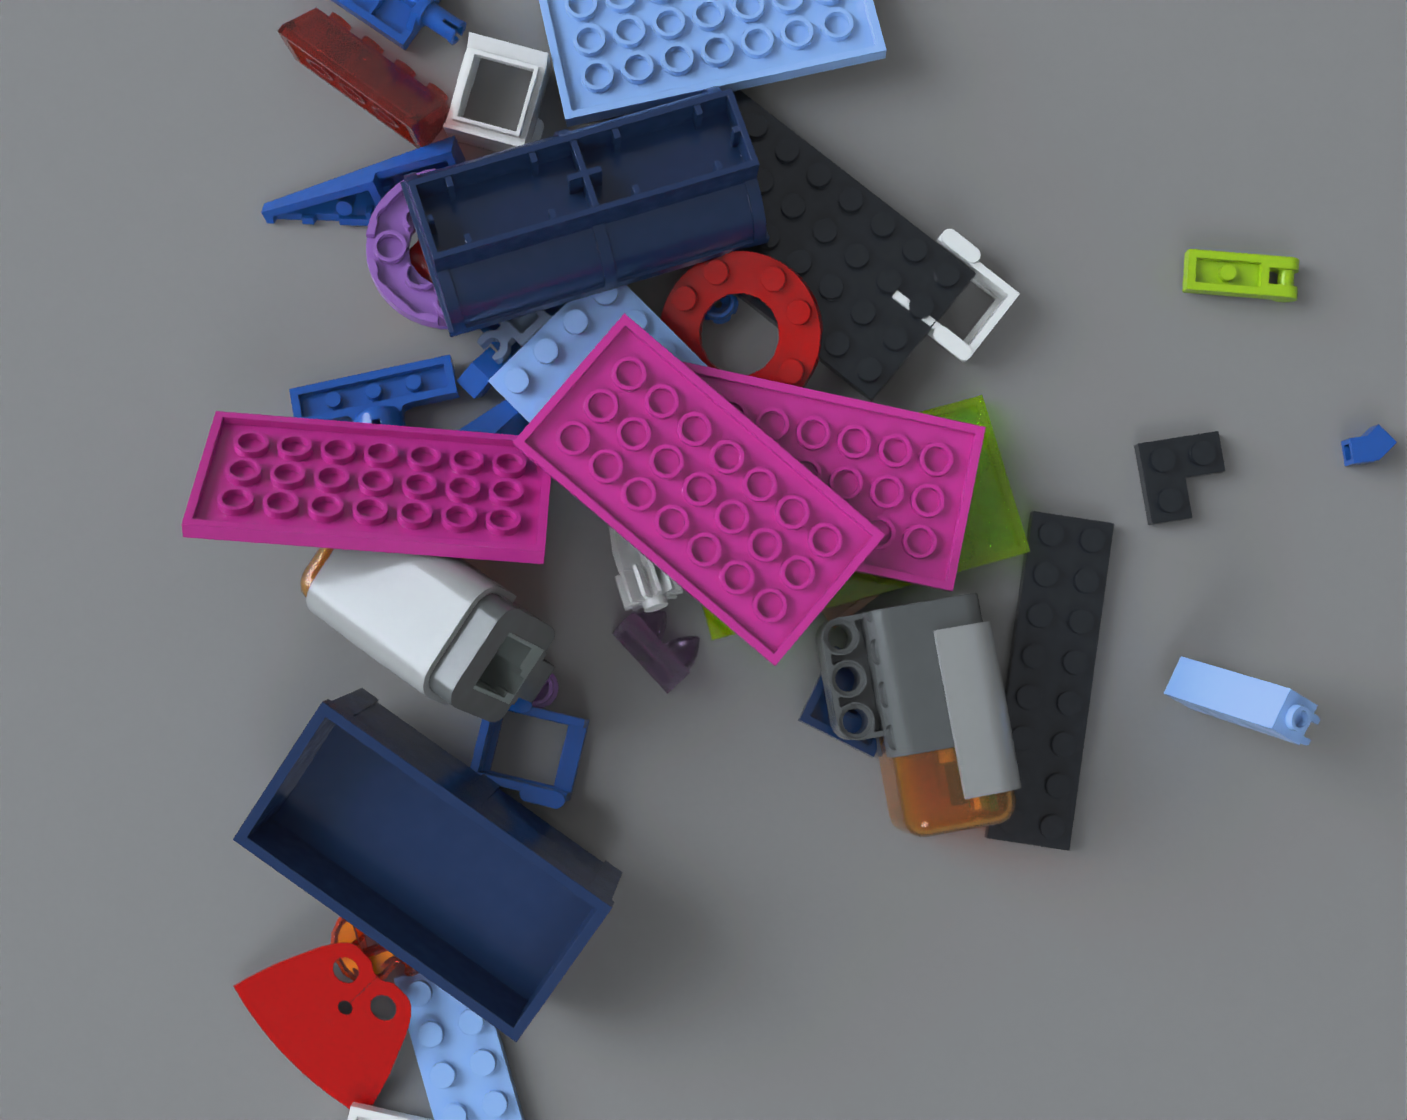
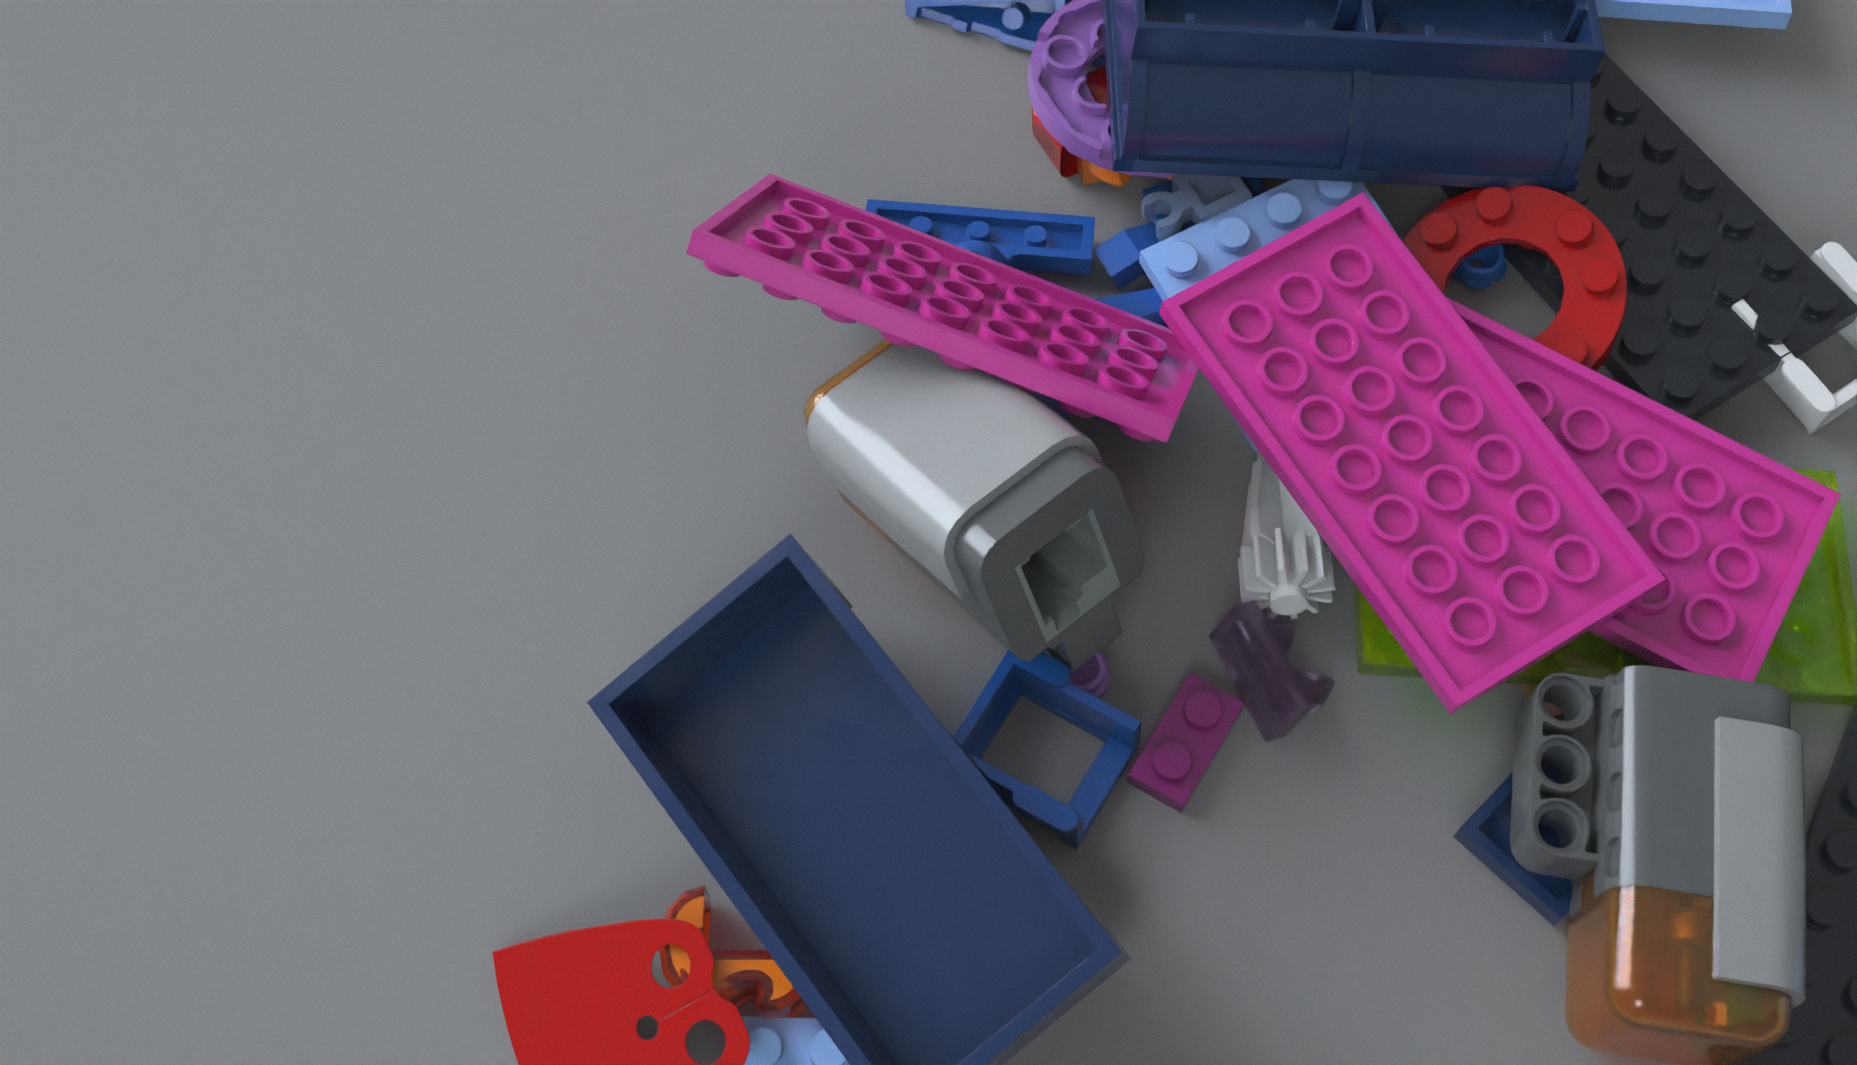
camera: 25 degrees right, 20 degrees down
(617, 711) = (1185, 742): none -> magenta plate

